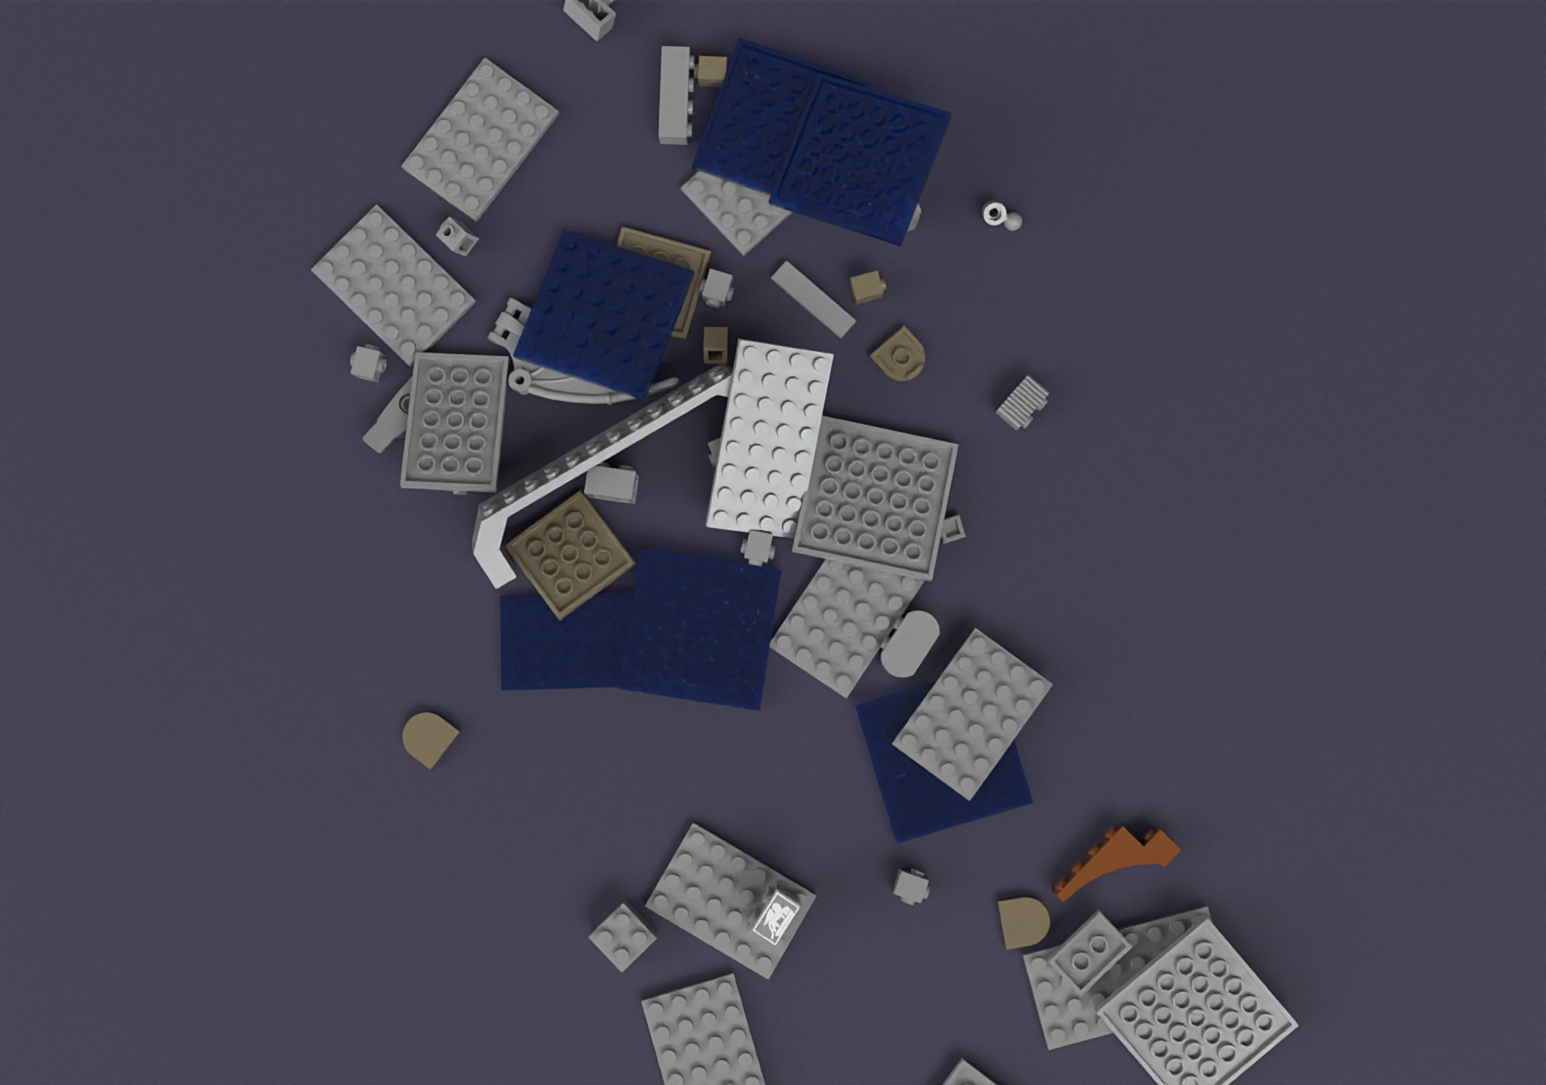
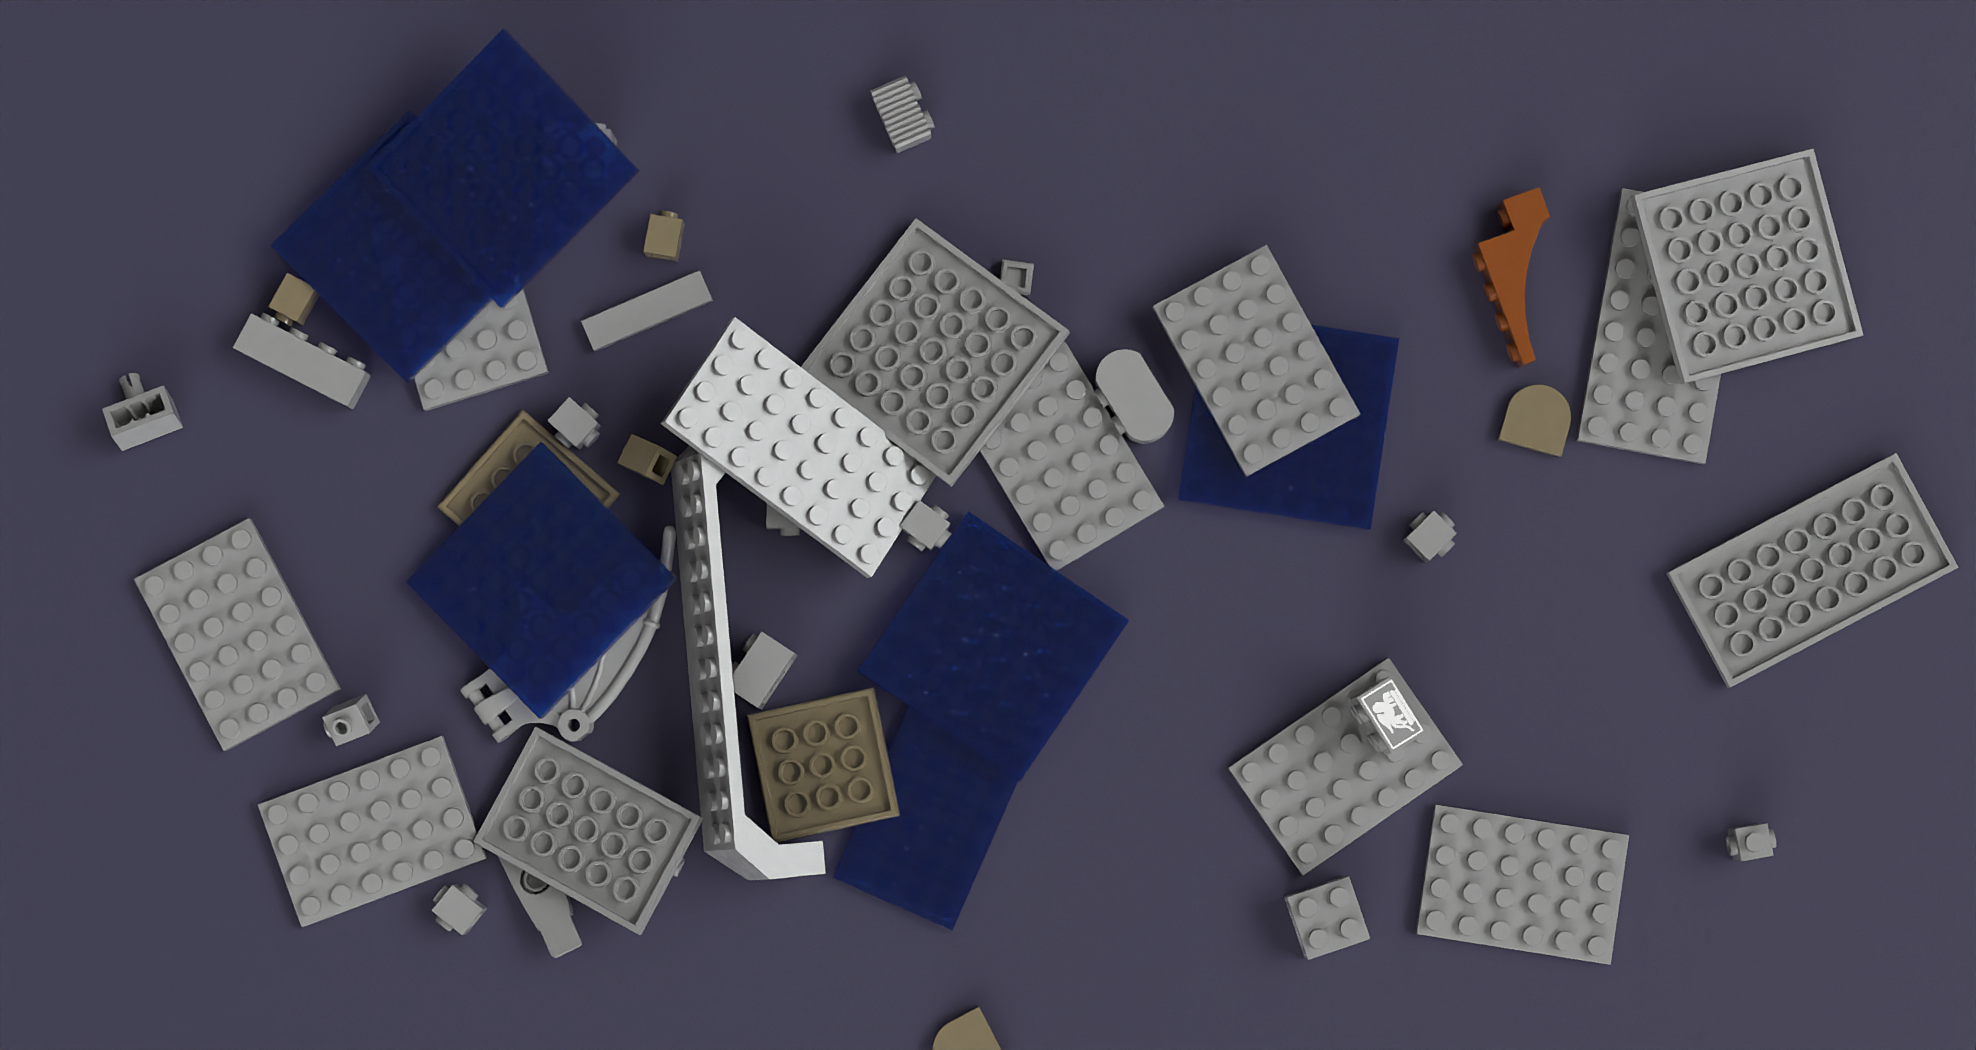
camera: 65 degrees left, 0 degrees up
(900, 356) = (770, 237): dark tan tile -> none
(1012, 220) = (666, 17): light grey plate -> none
(1089, 952) = (1611, 357): light grey tile -> none

